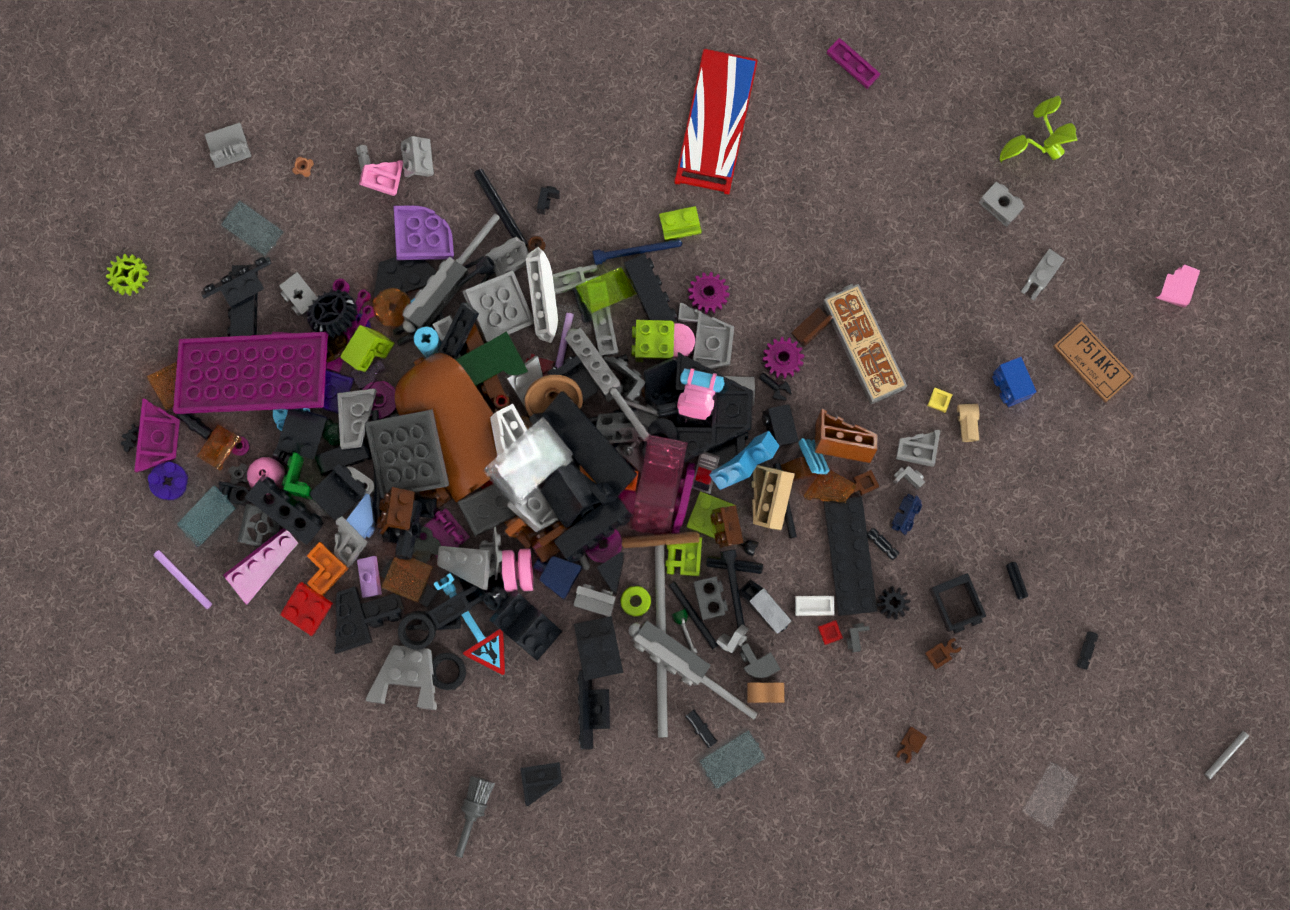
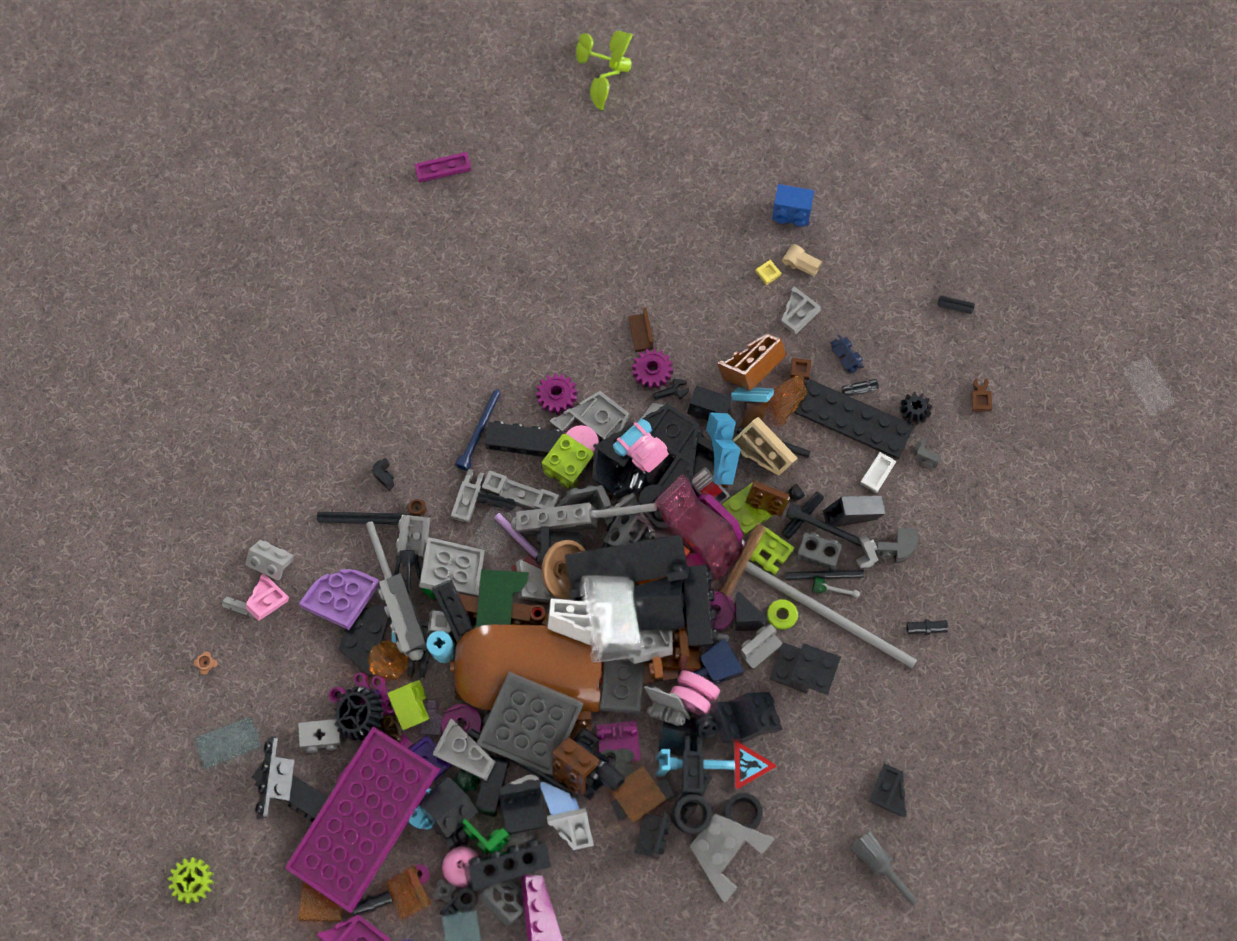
camera: 55 degrees left, 10 degrees down
(227, 145) = (137, 717): light grey hinge -> none
(306, 609) = (607, 904): red plate -> none
(330, 569) = (586, 861): orange plate -> none
(350, 630) = (644, 871): black wing -> none
(369, 577) = (614, 830): lavender plate -> none
(466, 563) = (659, 733): light grey wing -> none
(542, 295) = (466, 526): white brick -> none
(593, 709) = (856, 706): black bracket -> none
(605, 290) = (497, 473): clear neon green piece -> none
(679, 660) = (857, 607): piece -> none
(680, 223) = (480, 381): lime plate -> none
(716, 119) = (413, 299): flag -> none
(732, 759) = (968, 618): clear light blue piece -> none
(765, 693) = (928, 555): medium nougat axle -> none
(830, 632) = (908, 474): red tile -> none
(864, 343) = (683, 299): brick -> none
(912, 476) = (818, 330): light grey bracket -> none
(913, 742) = (1042, 465): reddish brown plate -> none
(963, 579) = (949, 344): black window -> none
(1004, 214) = (632, 135): light grey brick -> none
(1043, 272) = (716, 133): light grey hinge -> none
(1087, 650) = (1046, 286): black axle -> none
(1093, 361) = (813, 141): medium nougat tile -> none
(1180, 286) = (796, 42): bright pink piece -> none
(1226, 755) = (1194, 237): light grey bar -> none

